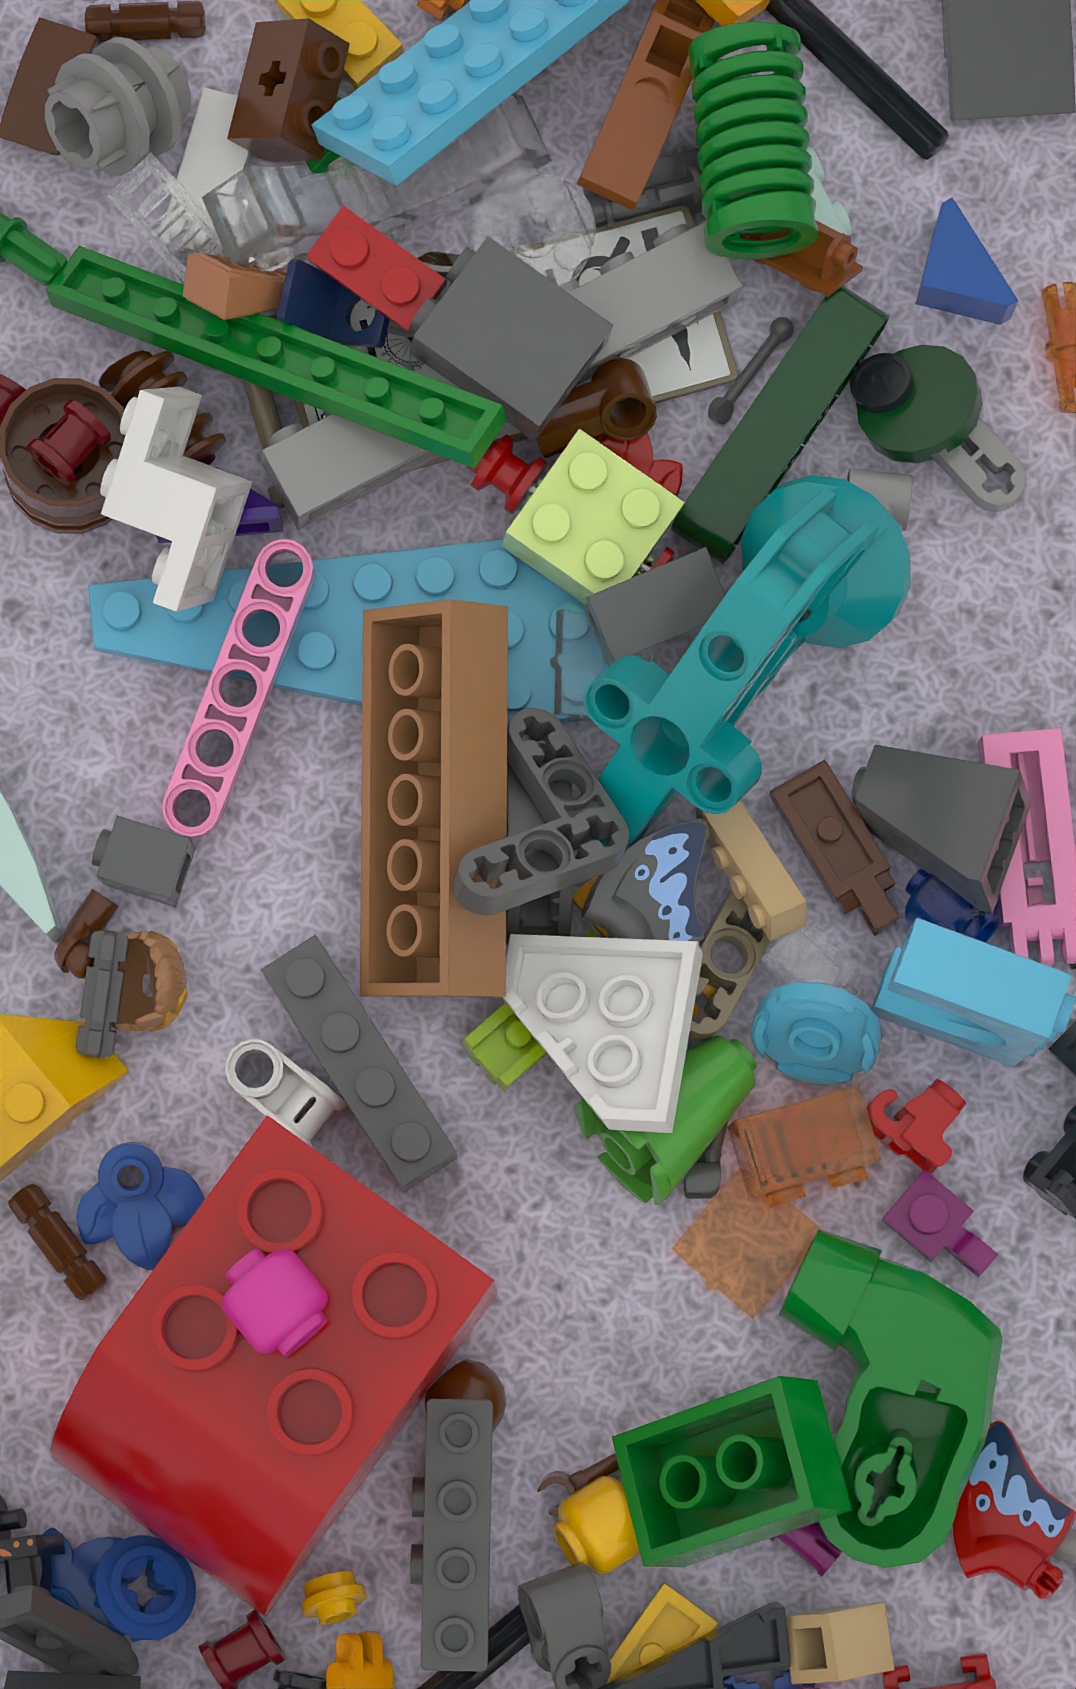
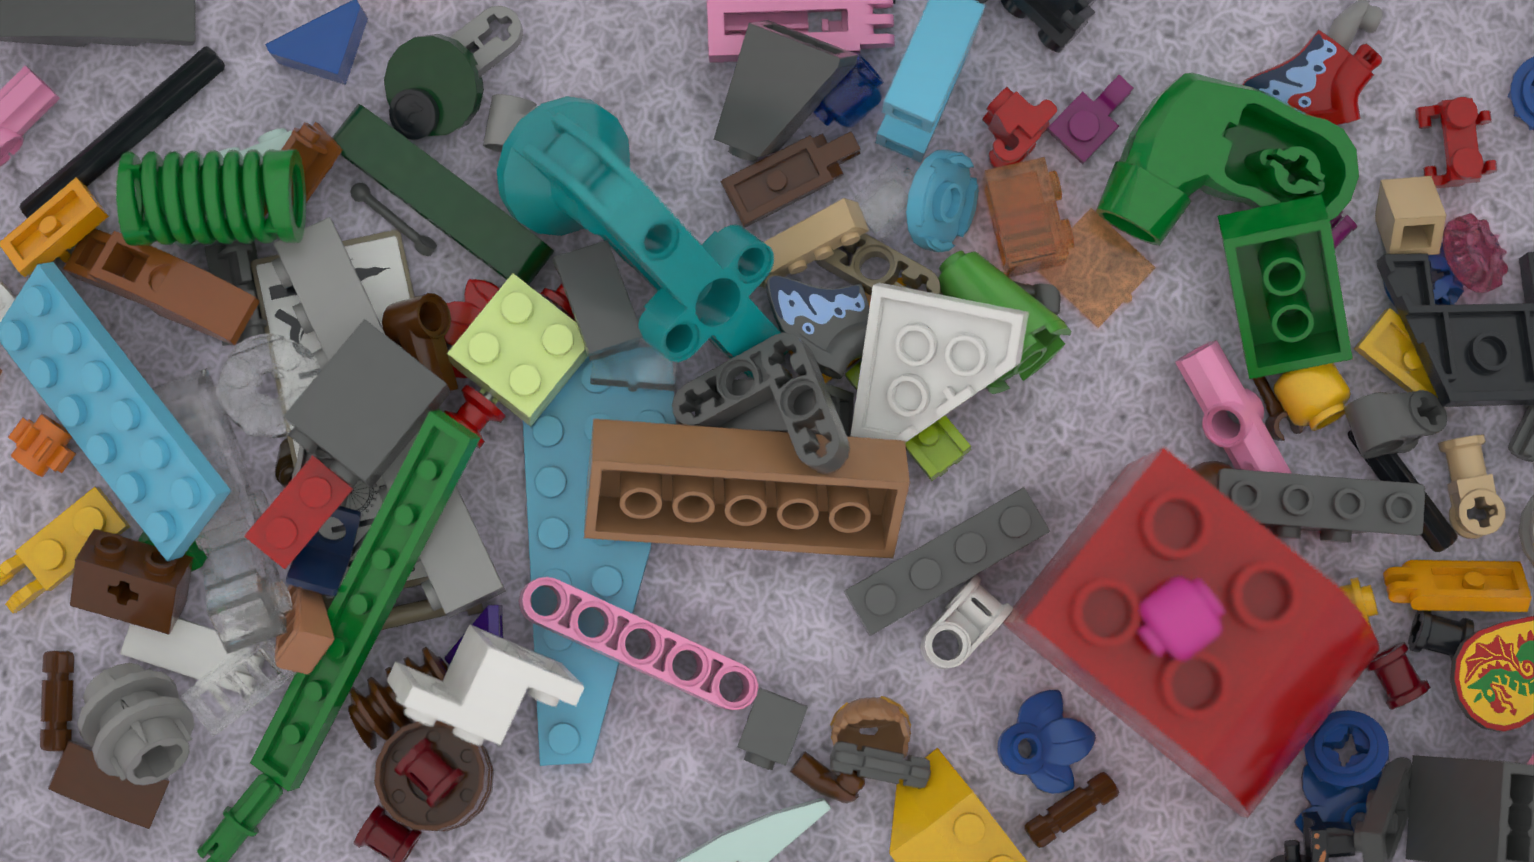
camera: 85 degrees left, 5 degrees up
(568, 1419) = (1221, 391): none -> bright pink piece

